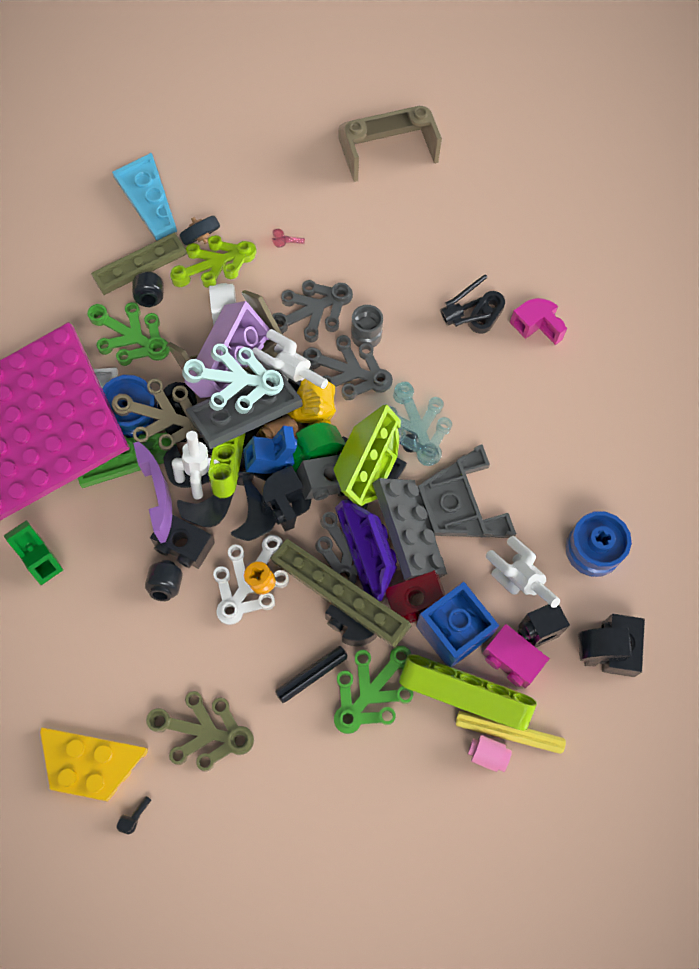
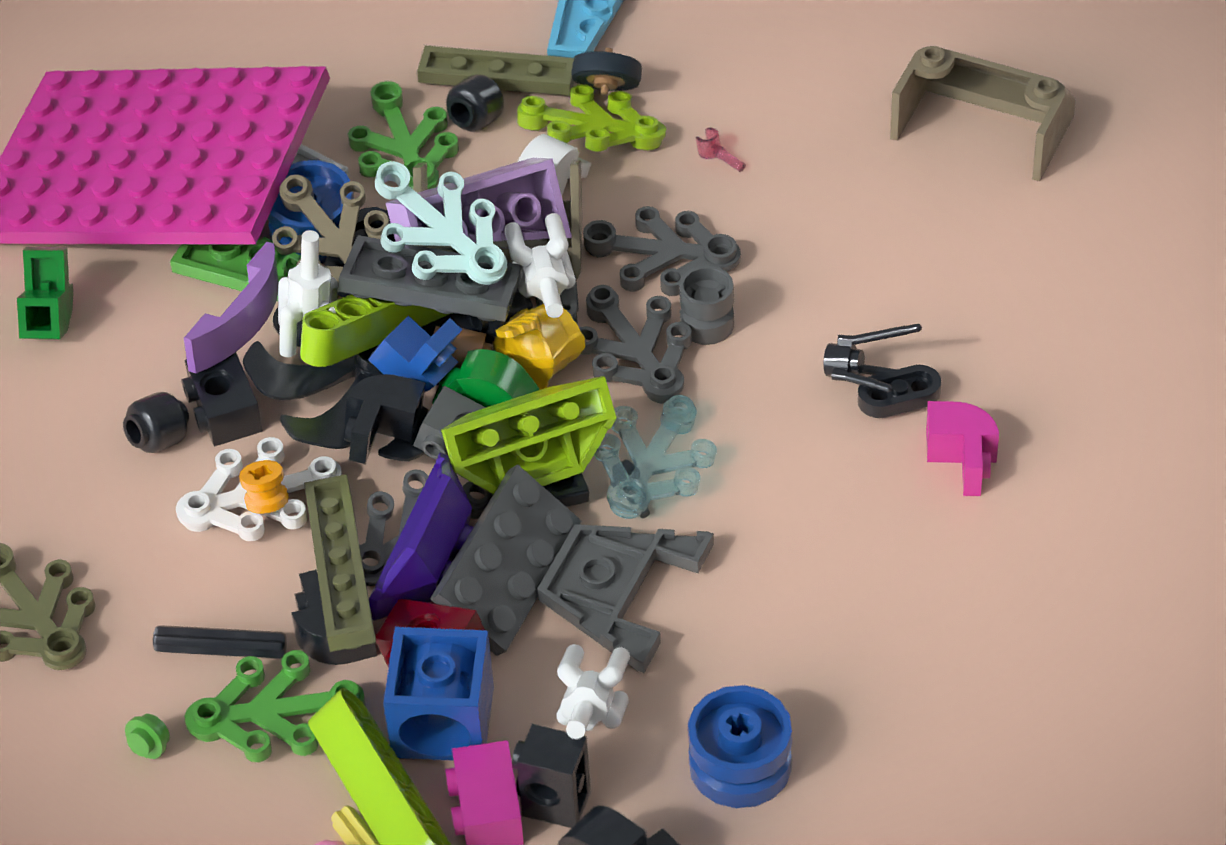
camera: 45 degrees right, 20 degrees down
(330, 754) = (147, 736): none -> bright green plate

